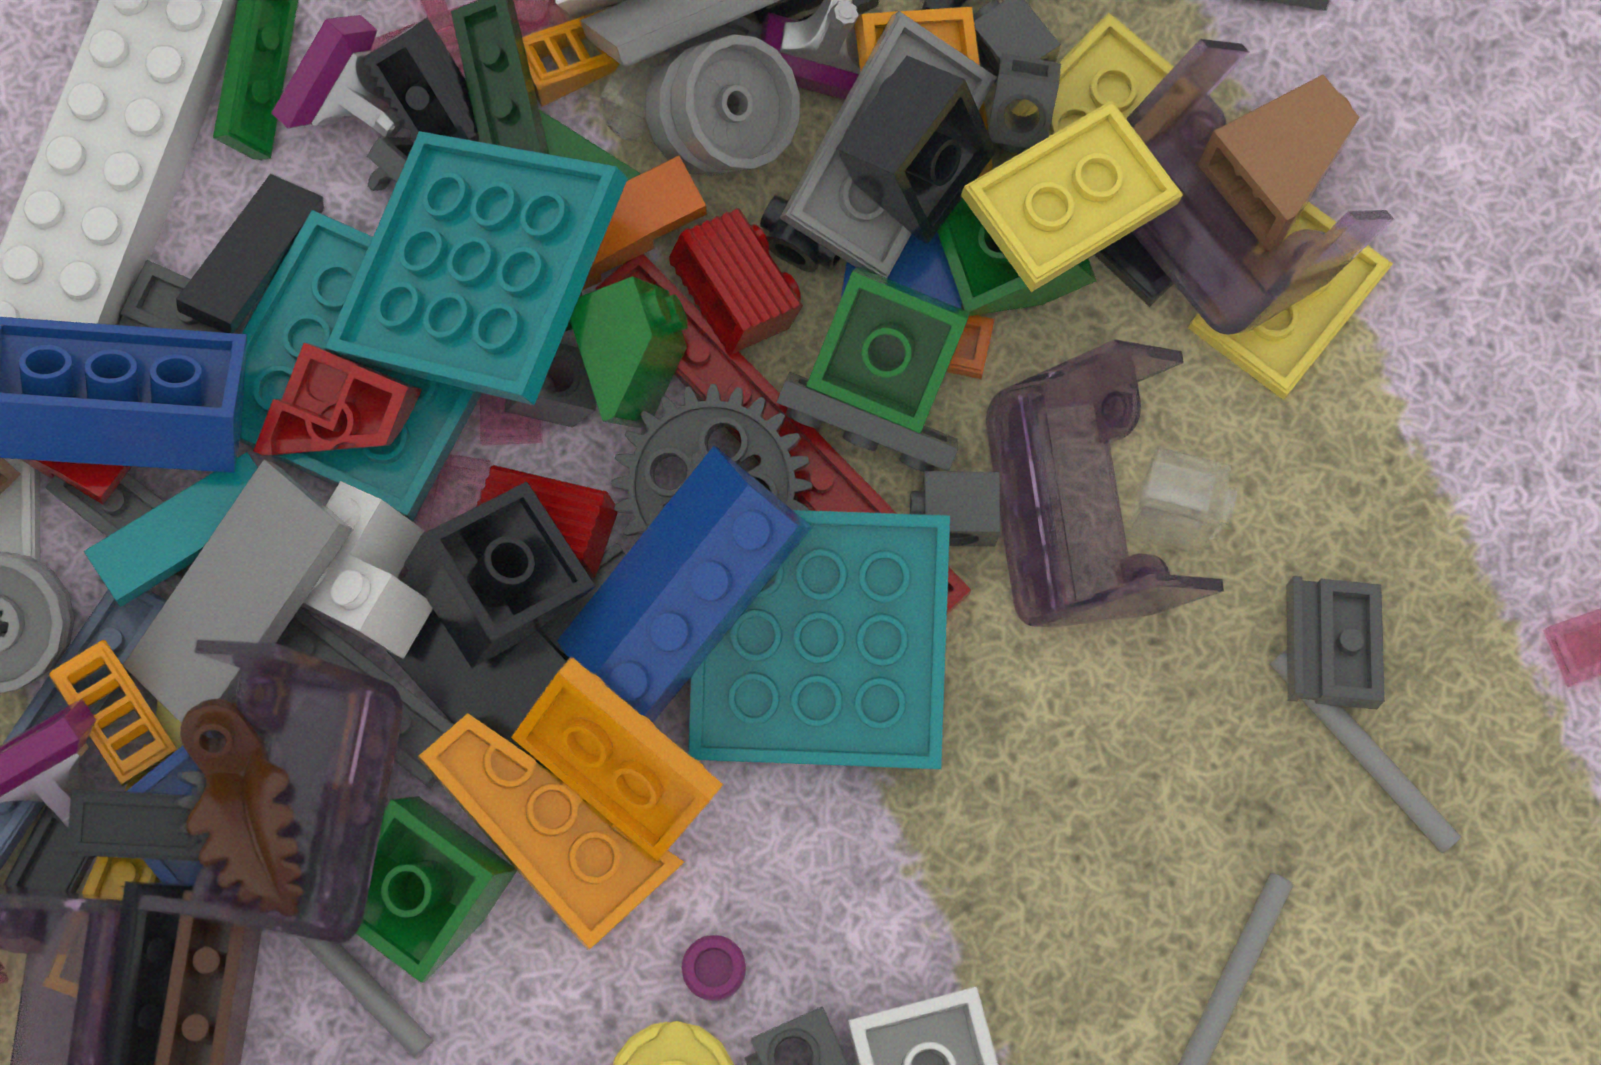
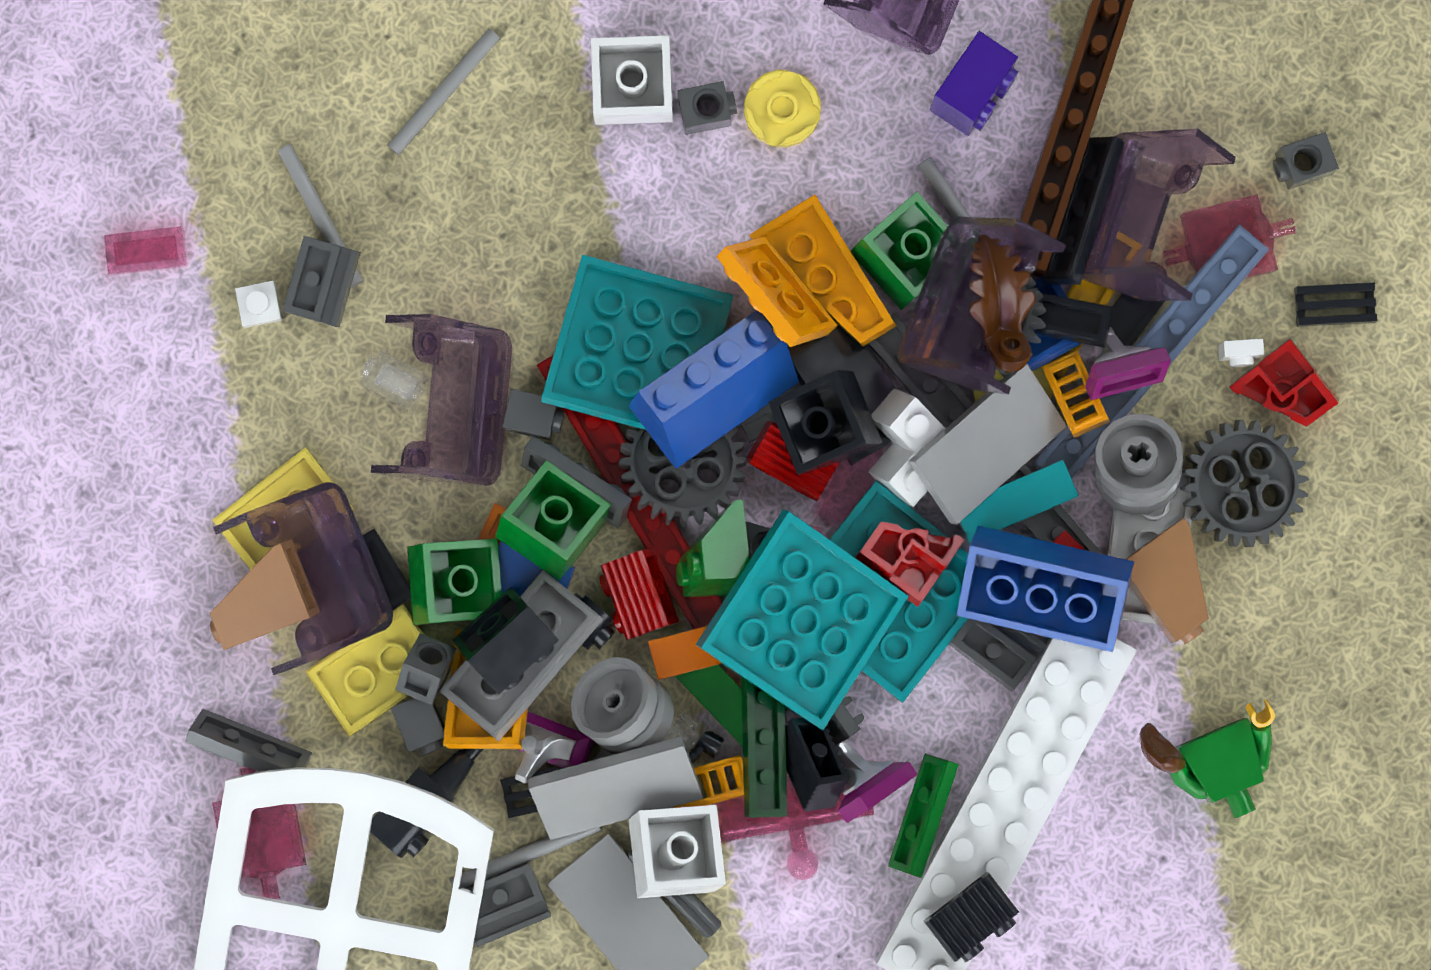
camera: 165 degrees left, 10 degrees up
(248, 255) = (946, 680): black tile -> none
(586, 105) = (708, 743): none -> black hand
(713, 968) = (744, 171): magenta tile -> none
(1071, 195) = (413, 588): light yellow tile -> none
(1419, 592) = (258, 304): none -> white plate

